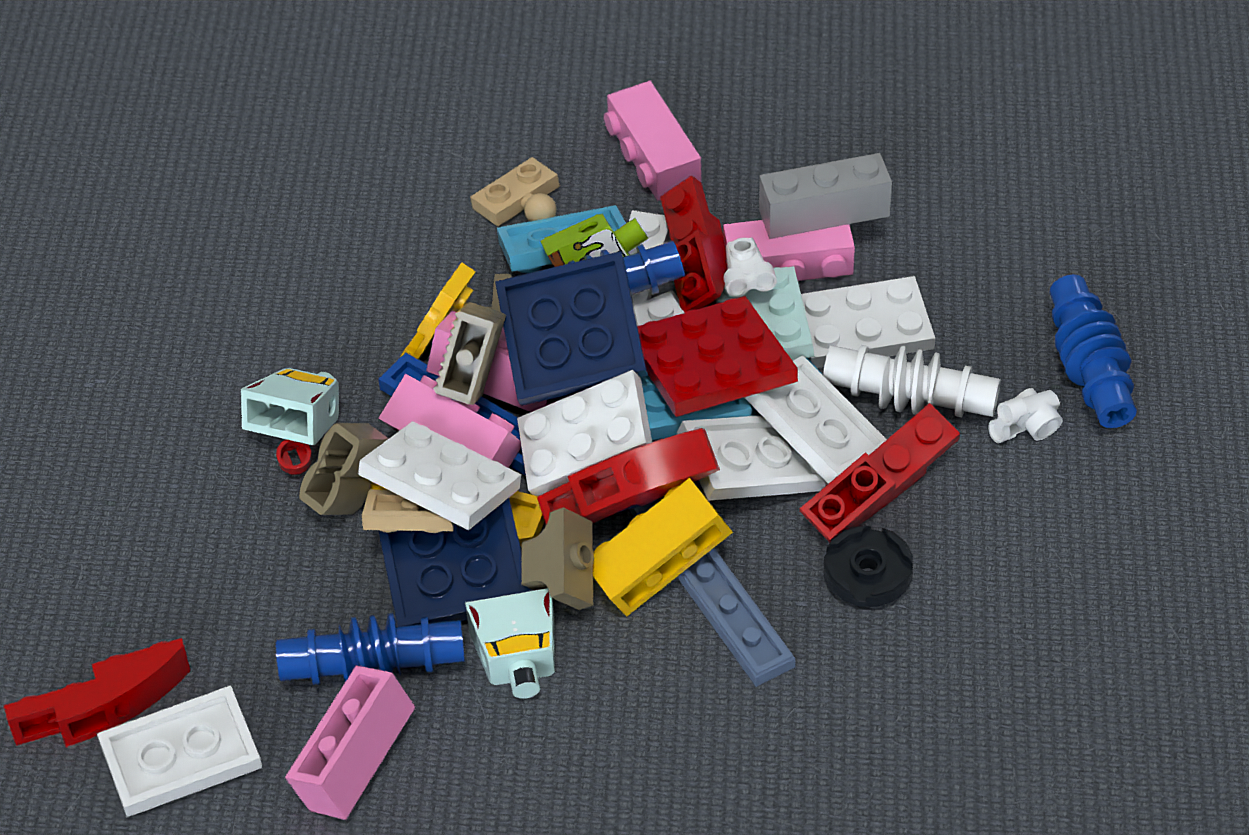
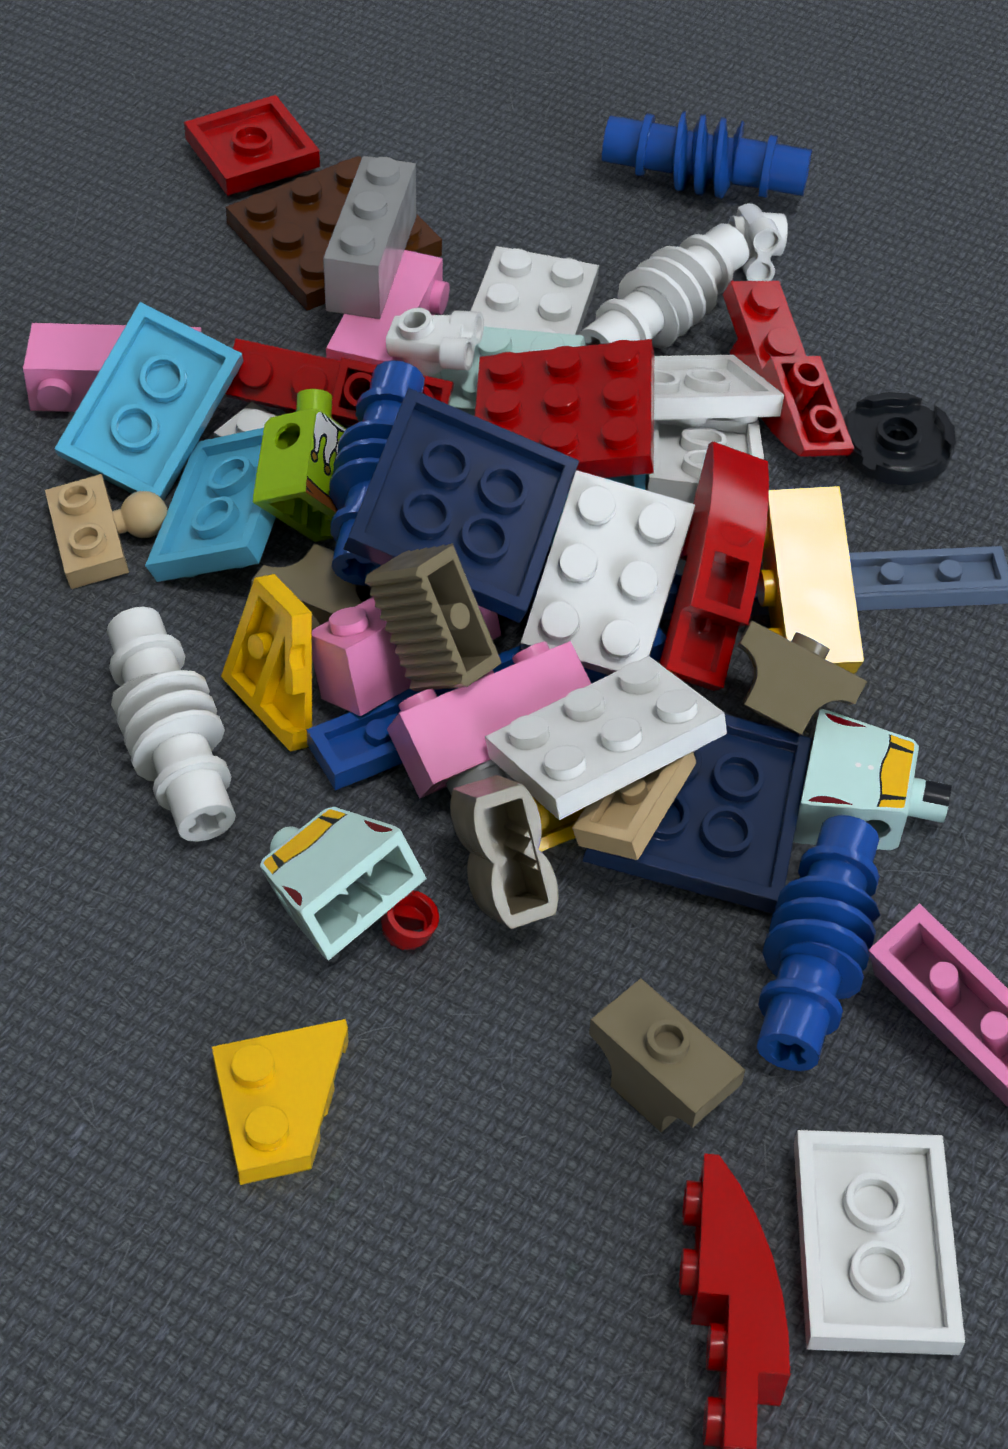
camera: 70 degrees left, 0 degrees up
(154, 451) = (277, 1096): none -> yellow wing
(245, 601) = (662, 1059): none -> dark tan brick
(371, 287) = (169, 724): none -> white piece
(614, 164) = (149, 403): none -> medium azure plate
(916, 189) = (295, 223): none -> reddish brown plate
(926, 110) = (252, 145): none -> red plate

